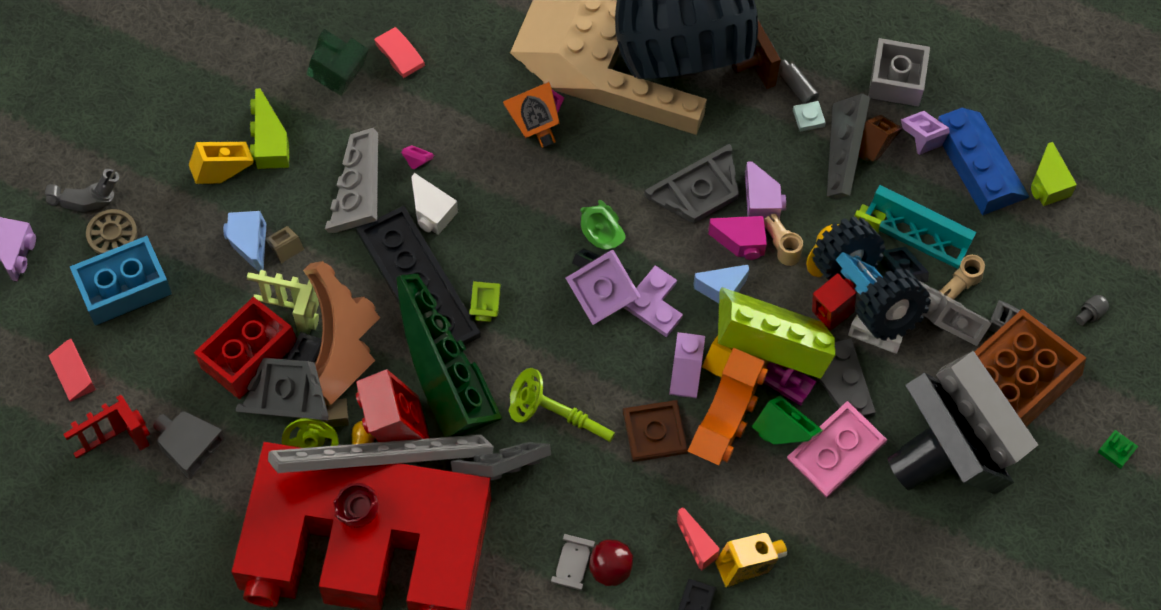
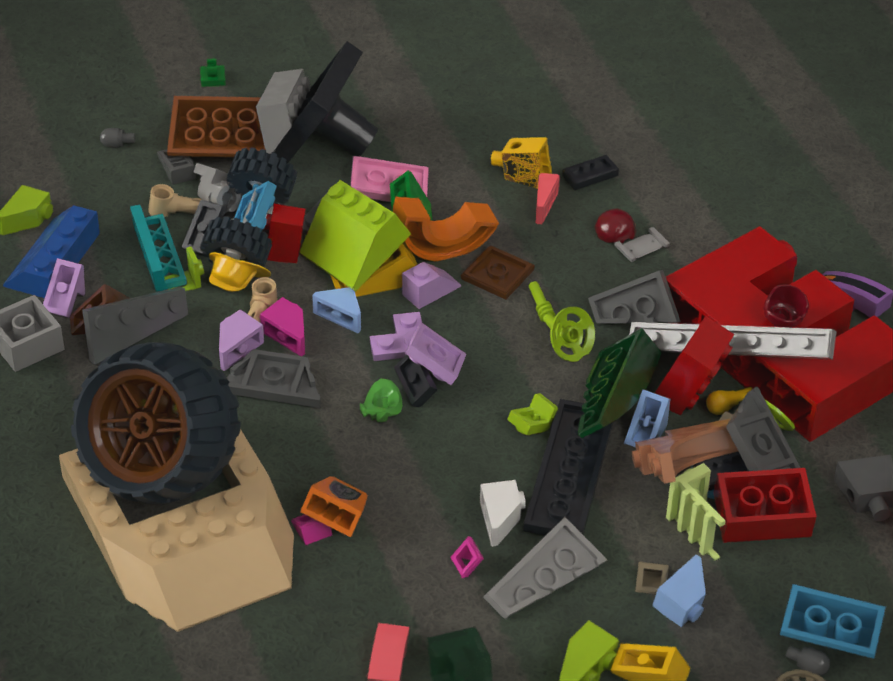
camera: 135 degrees left, 20 degrees down
(399, 363) = (649, 418): none -> light blue slope

